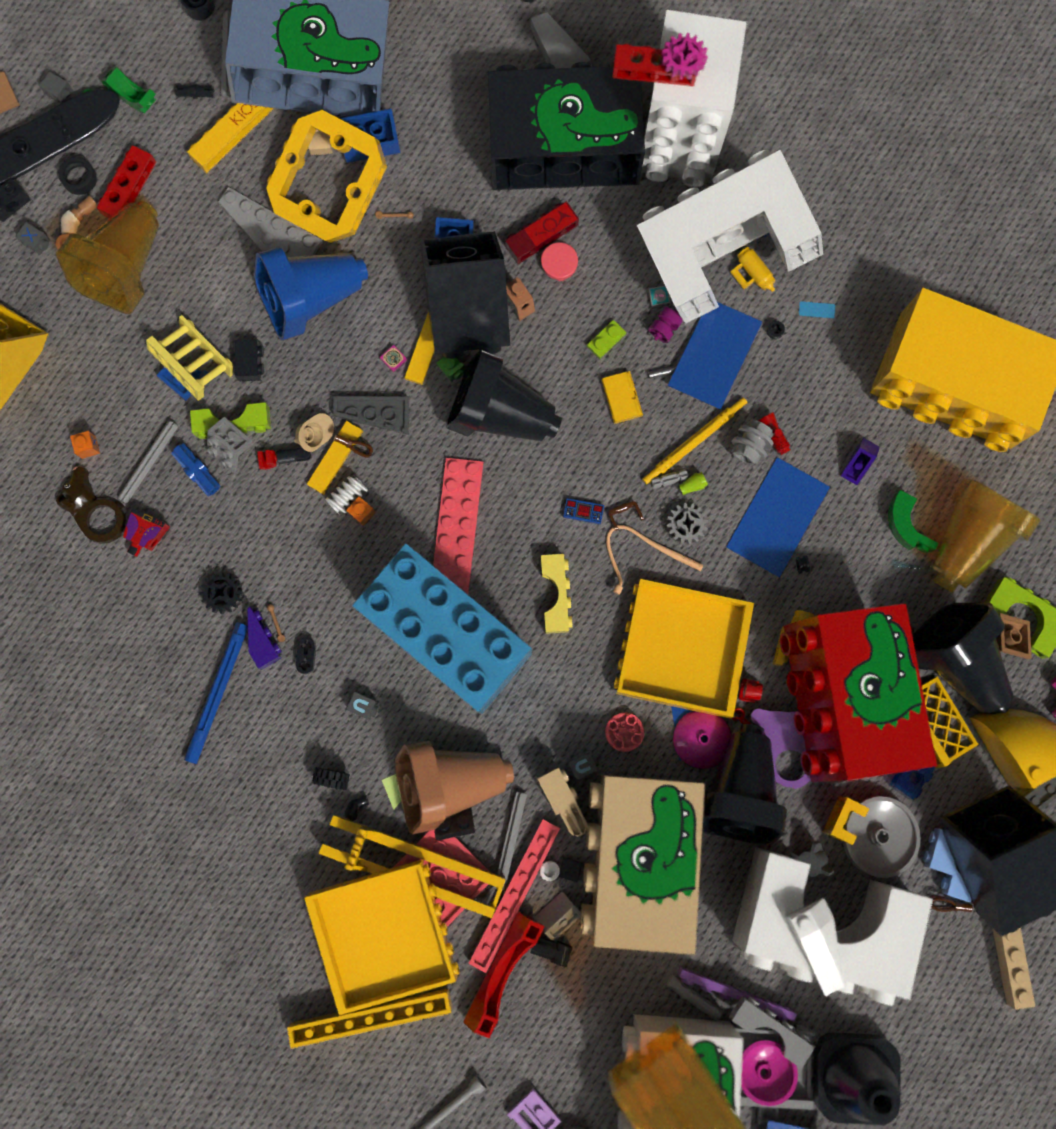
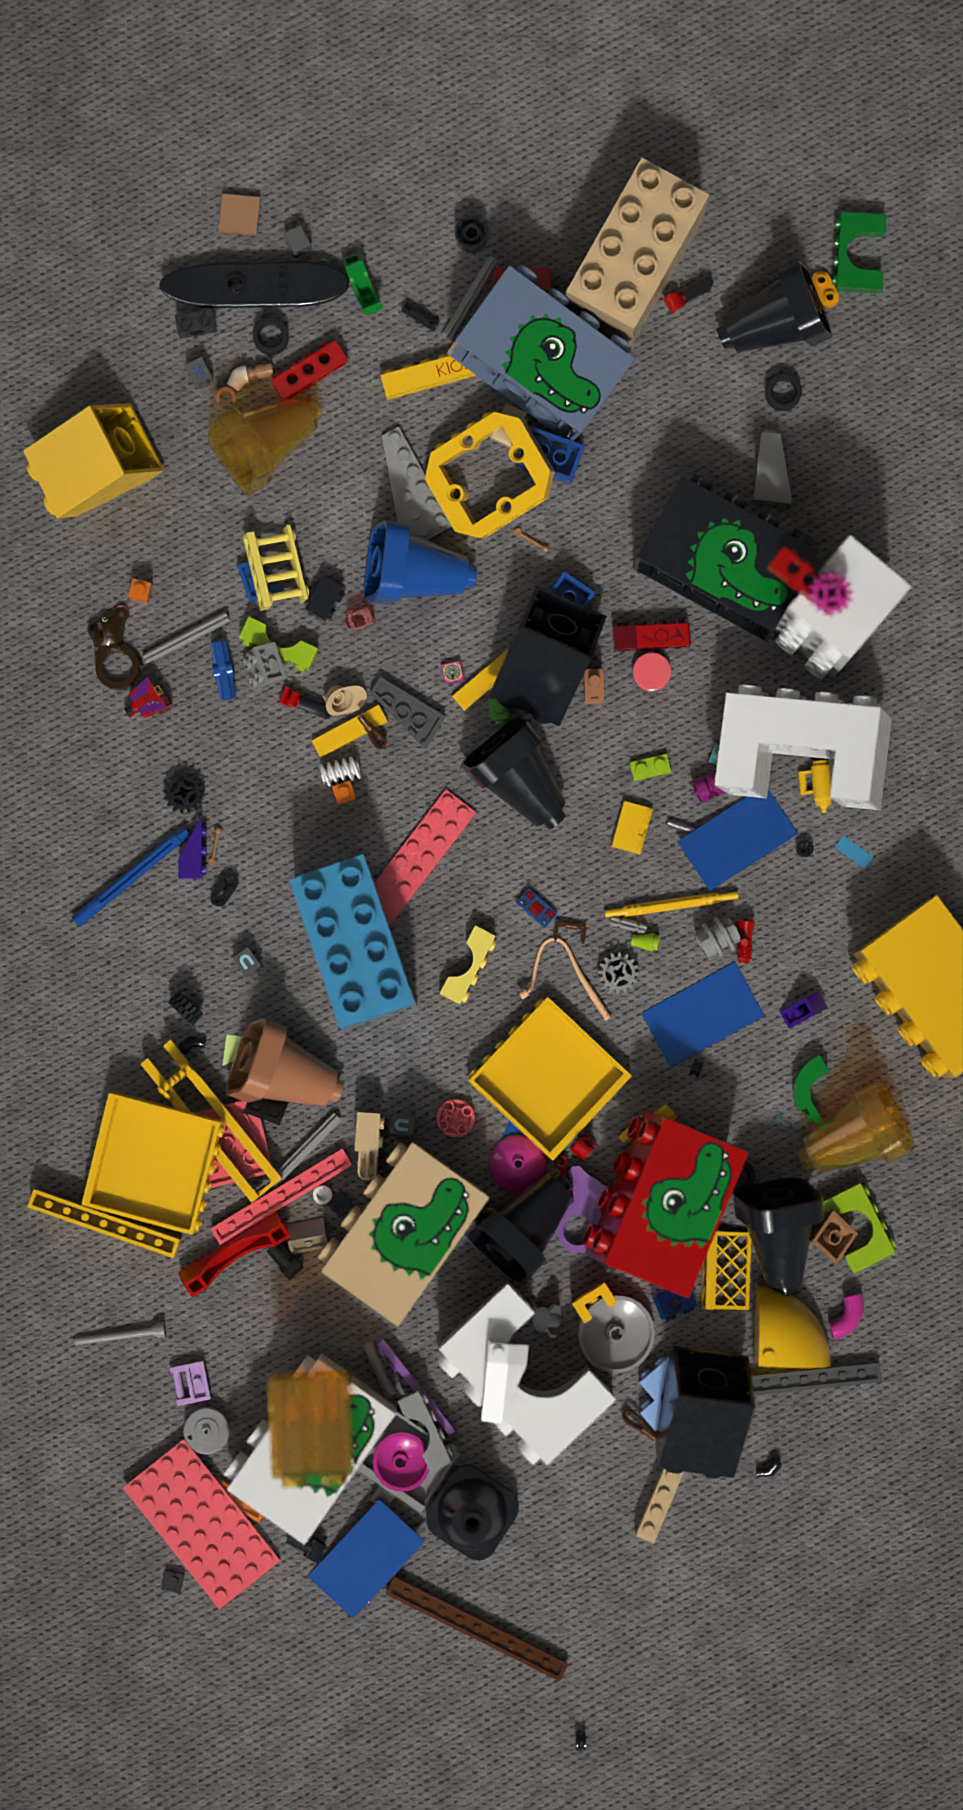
camera: 30 degrees right, 5 degrees up
(290, 351) = (356, 625): none -> clear red brick

